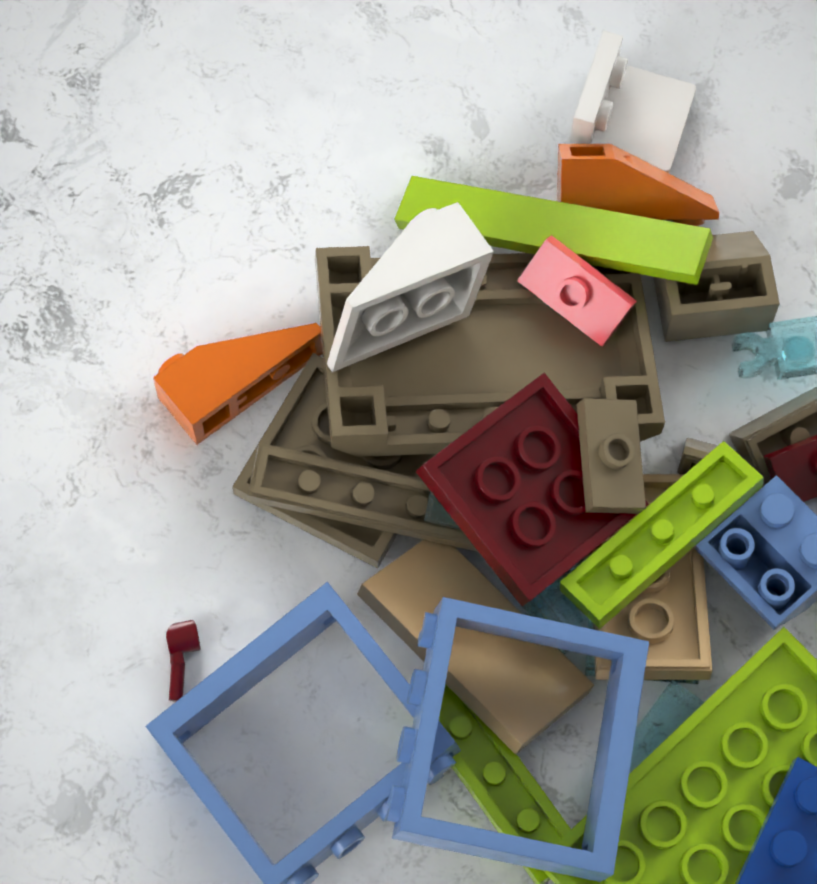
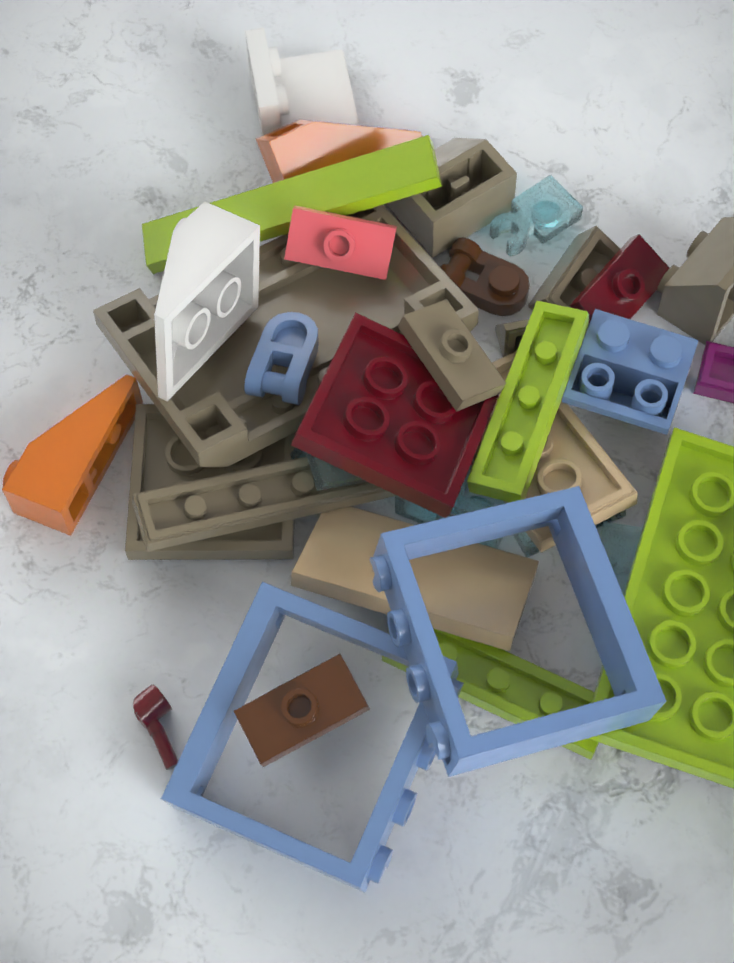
camera: 25 degrees left, 5 degrees down
(300, 713) = (301, 710): none -> reddish brown plate
(472, 368) = (289, 342): none -> medium blue plate
(711, 403) = (501, 284): none -> reddish brown plate

